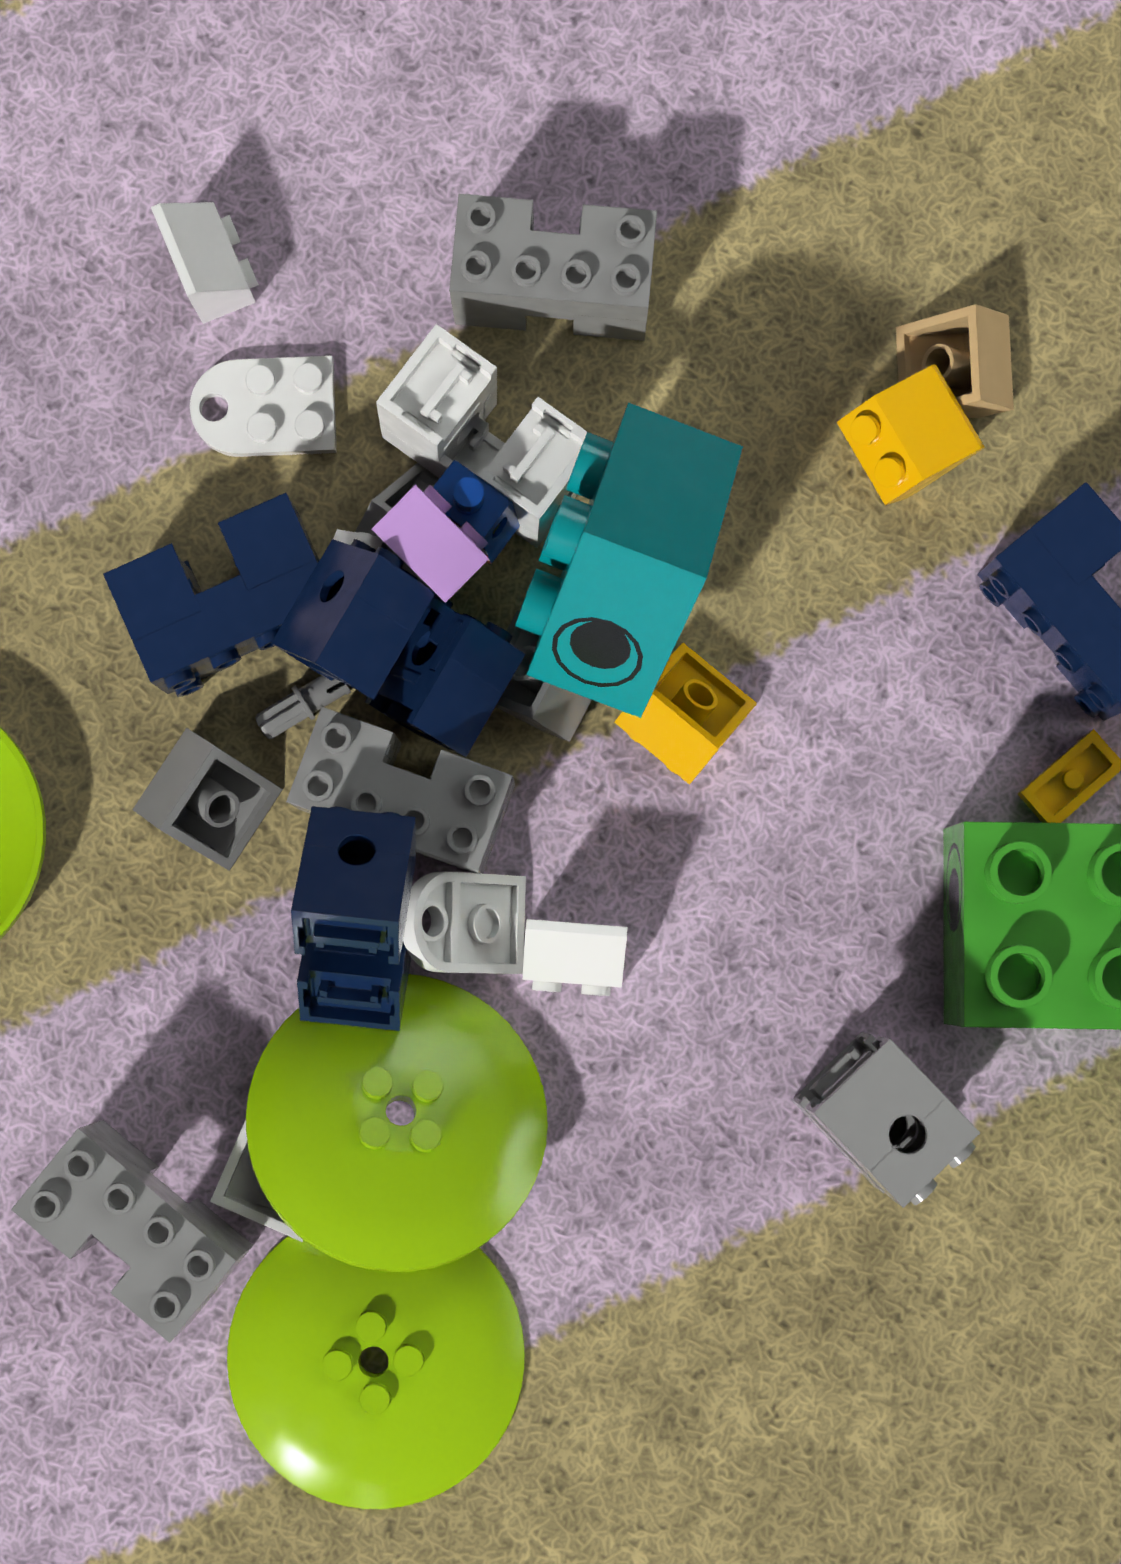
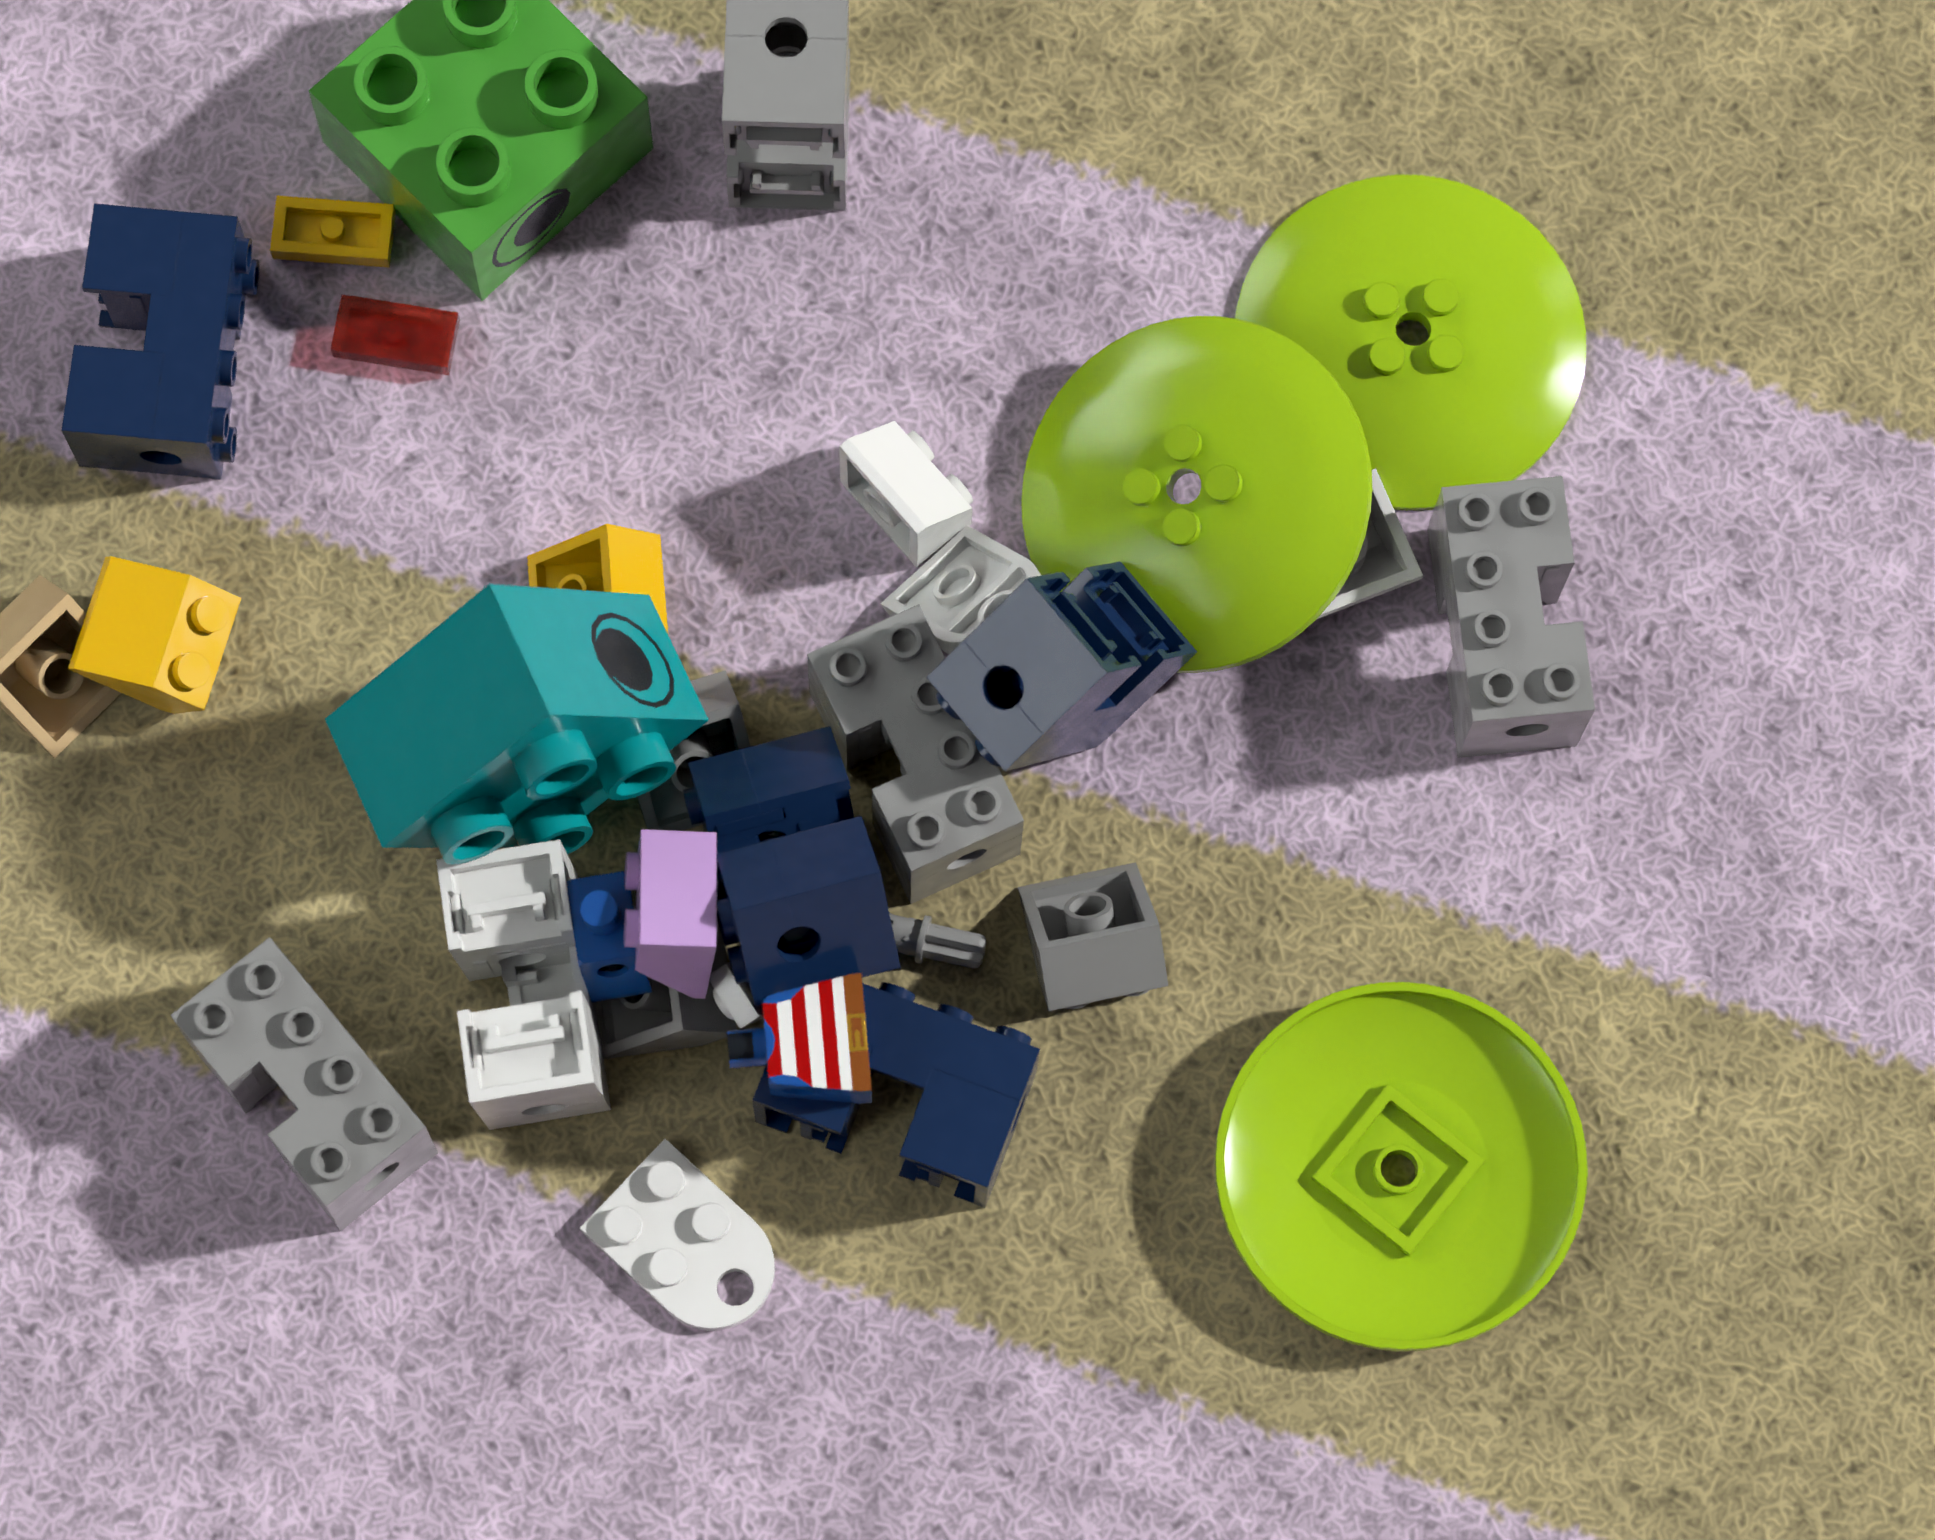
camera: 140 degrees left, 10 degrees down
(205, 257) = (603, 1421): white slope -> none
(276, 547) = (811, 1042): none -> torso
(969, 754) = (395, 334): none -> clear red plate

